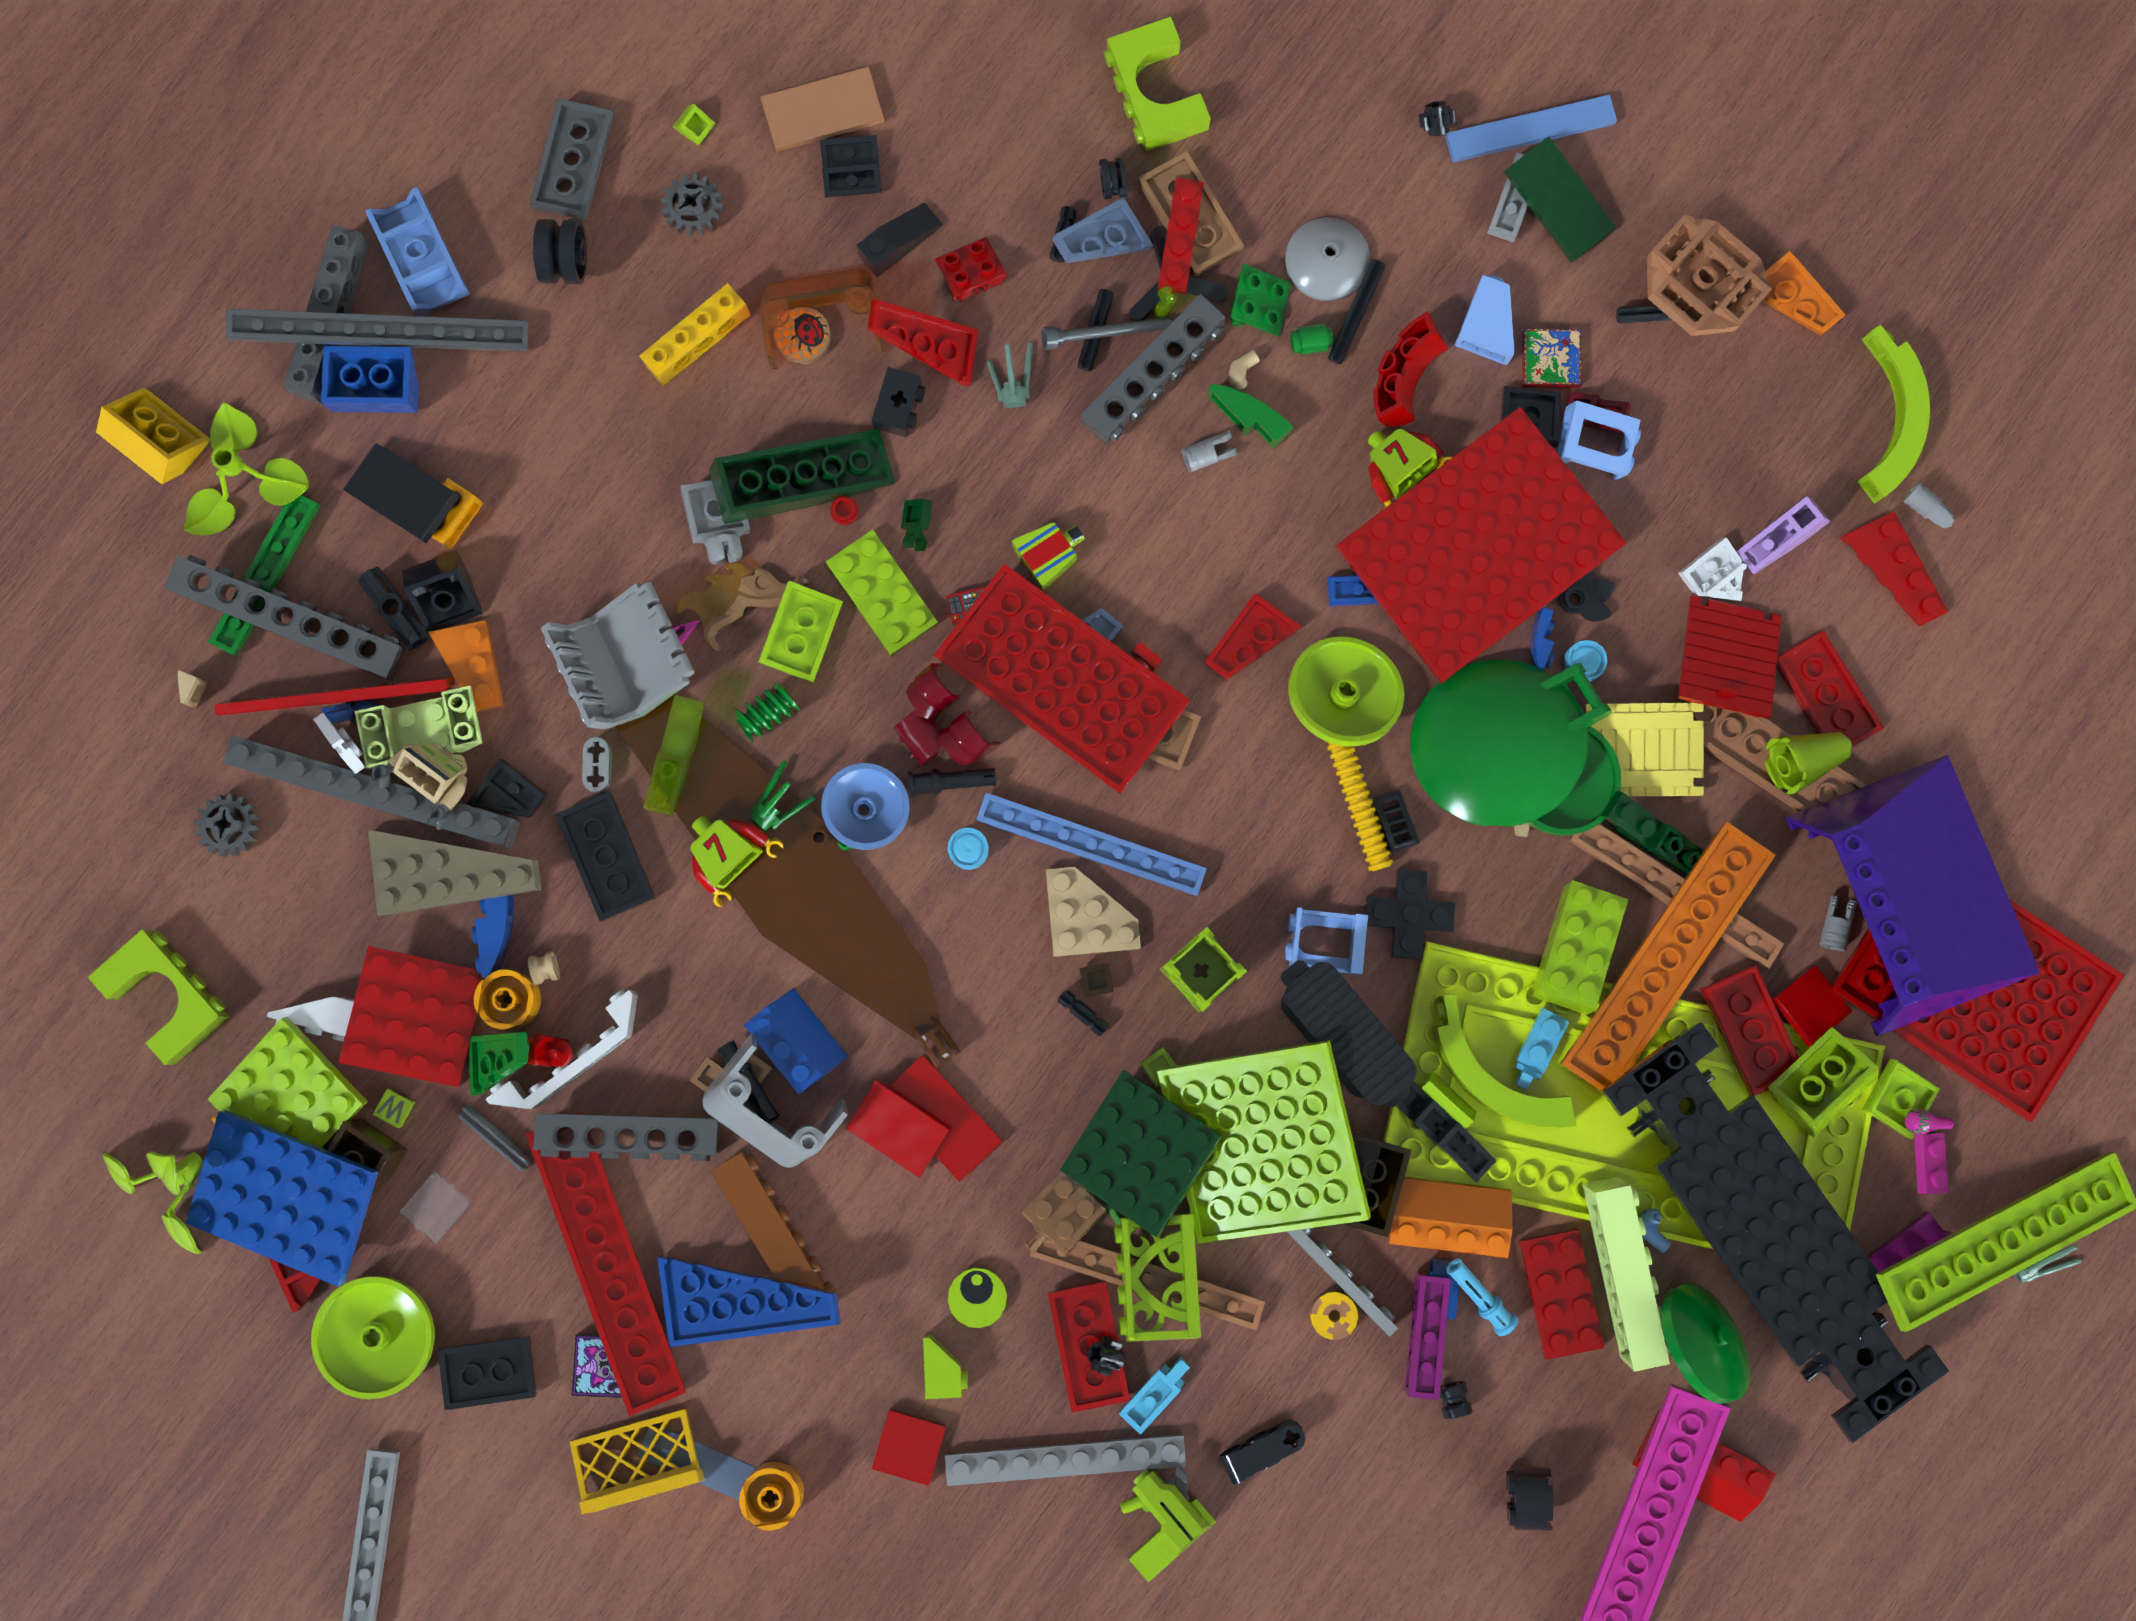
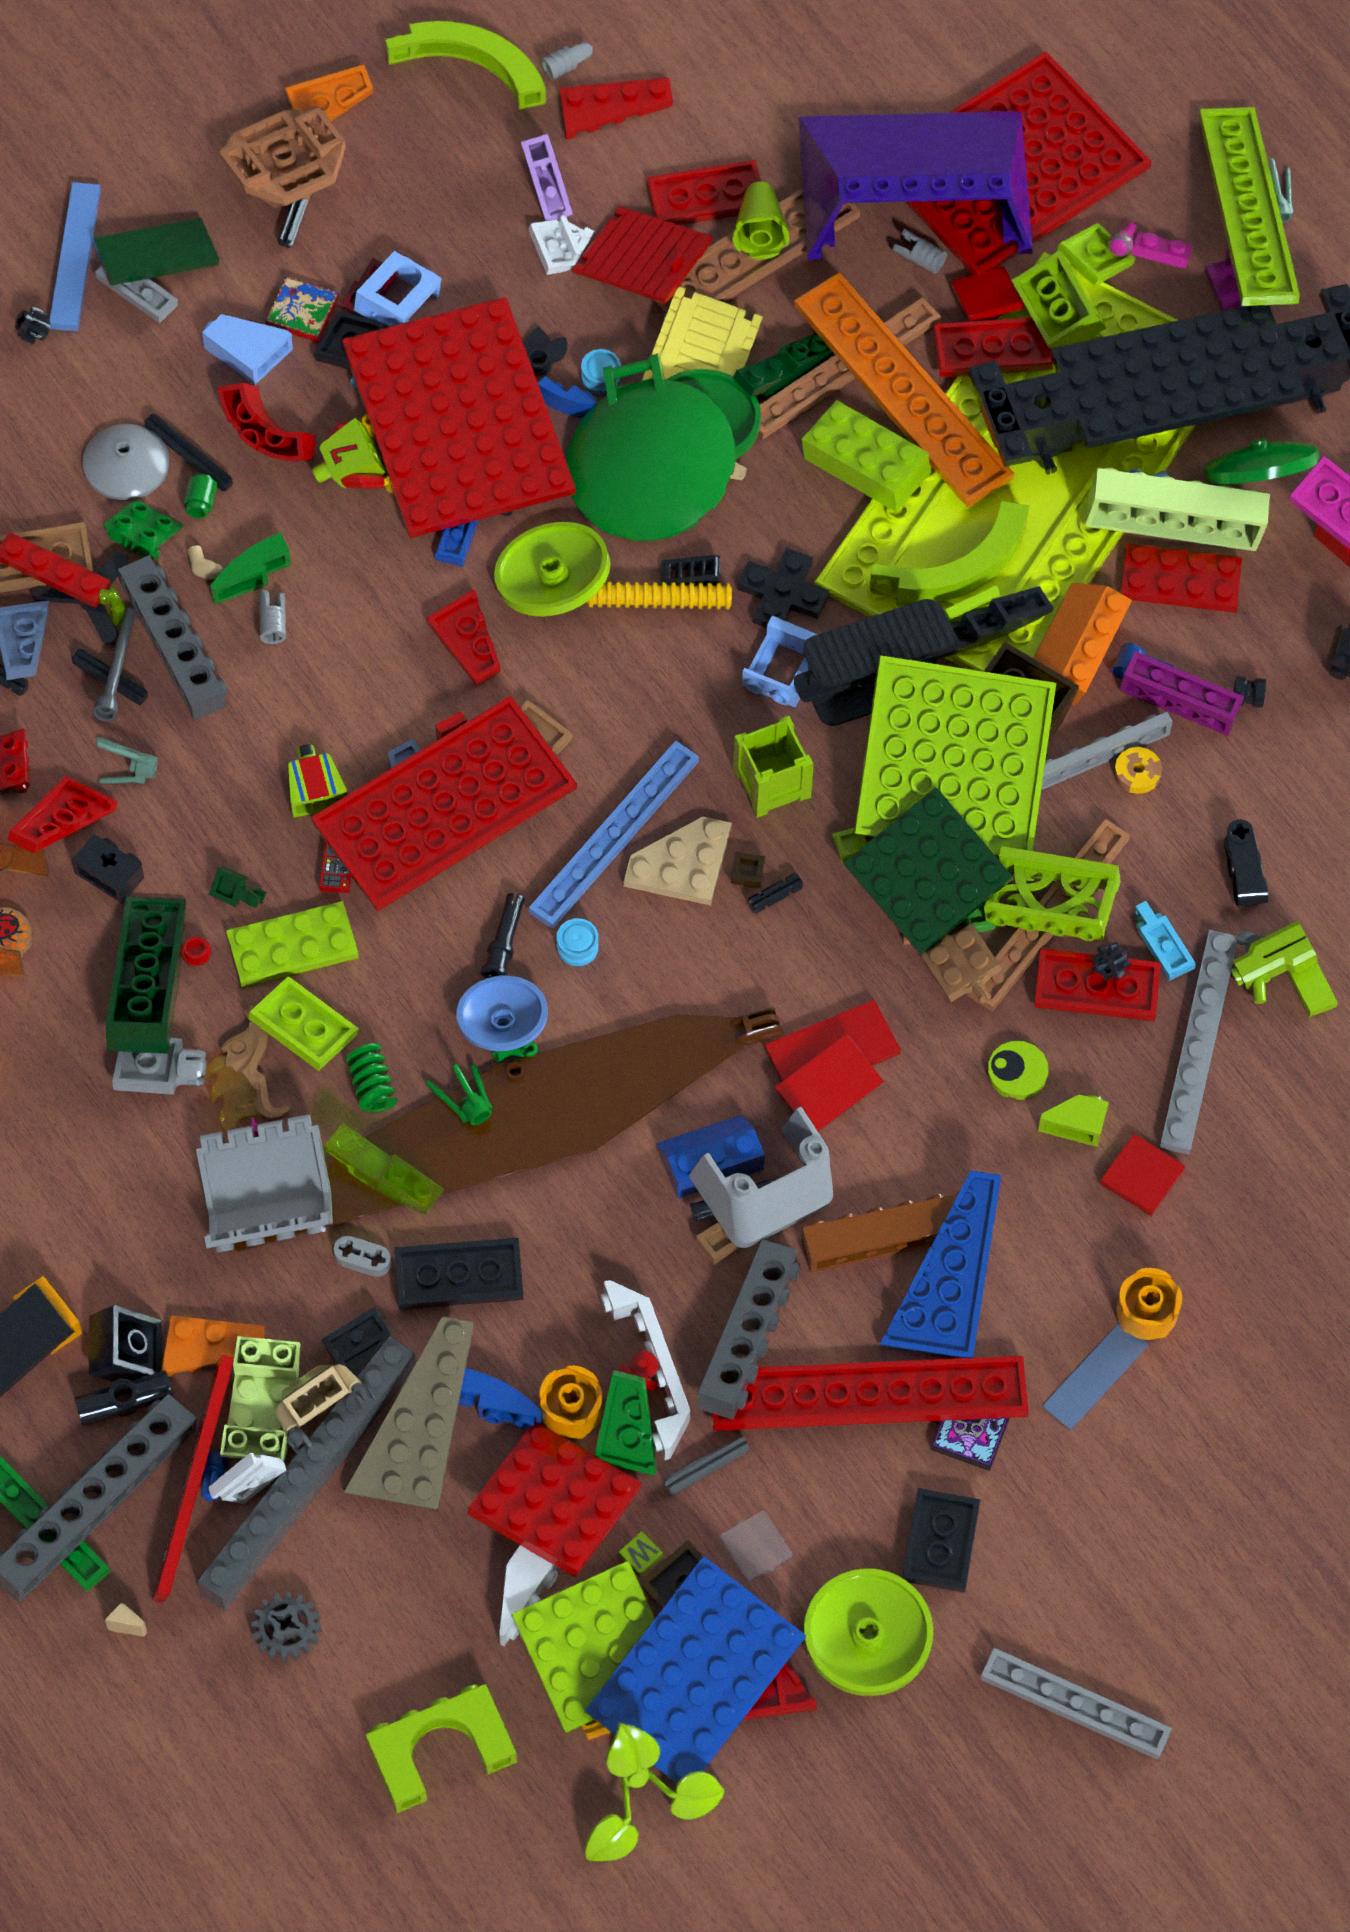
camera: 70 degrees left, 20 degrees down
(543, 968) = (550, 1359): tan wheel -> none
(634, 1488) = (1103, 1426): yellow fence -> none
(725, 852) = (500, 1150): lime torso -> none
(923, 733) = (449, 945): dark red piece -> none
(1489, 1305) = (1171, 633): medium azure pin -> none
(1539, 1047) = (946, 519): medium azure hinge -> none

